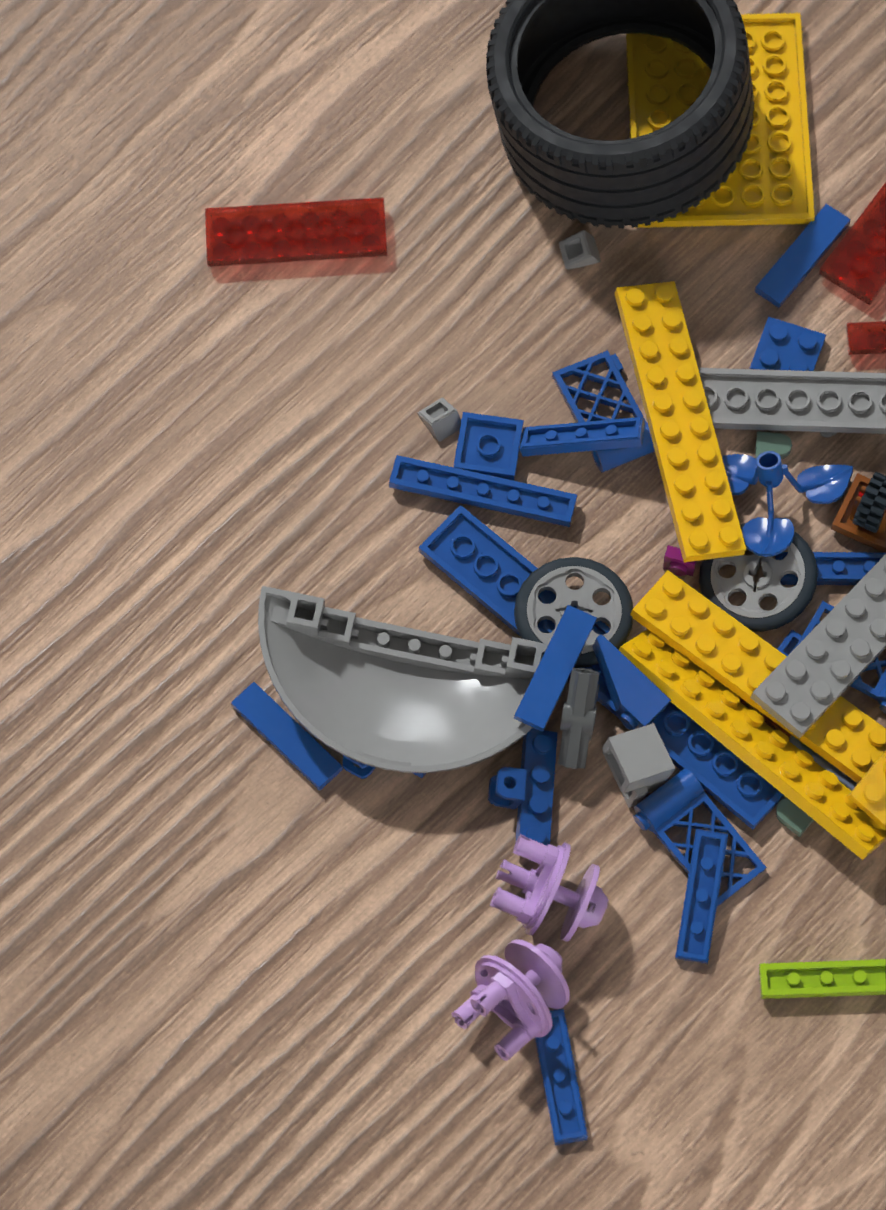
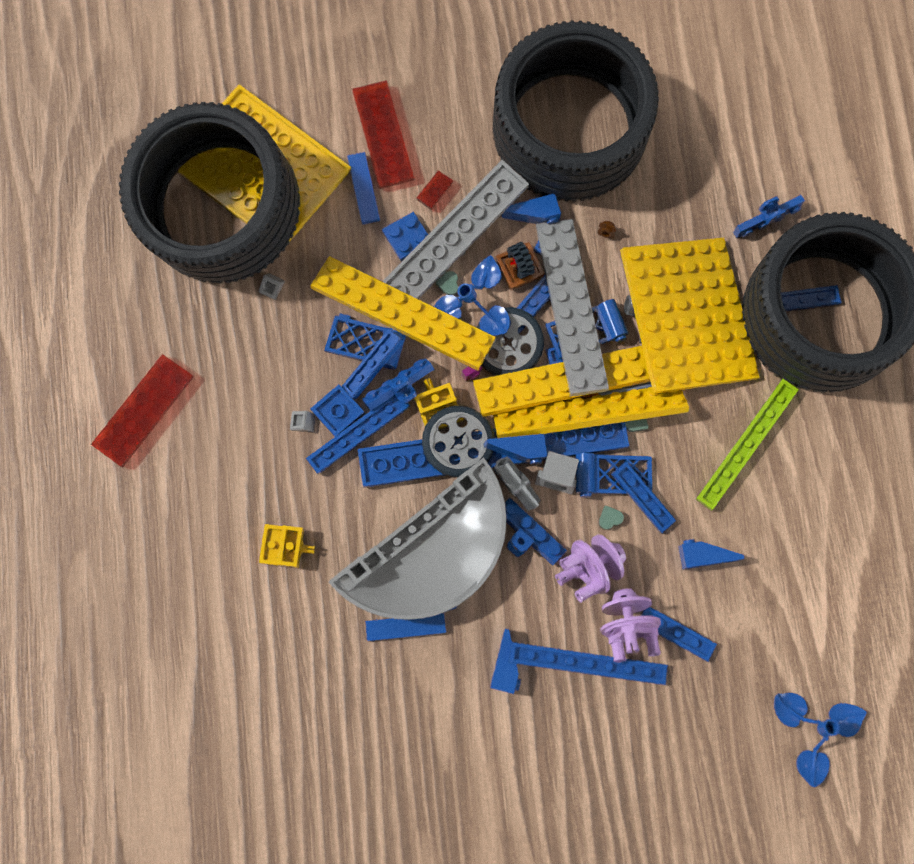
camera: 55 degrees left, 10 degrees up
(266, 515) = (283, 546): none -> yellow plate
(331, 894) = (505, 674): none -> blue slope
(424, 988) = (587, 663): none -> blue tile
(555, 668) = (486, 474): blue tile -> none
(584, 491) = (399, 386): none -> blue plate
(603, 545) = (435, 400): none -> yellow plate
(638, 877) = (610, 517): none -> sand green tile
(688, 1026) = (702, 554): none -> blue slope

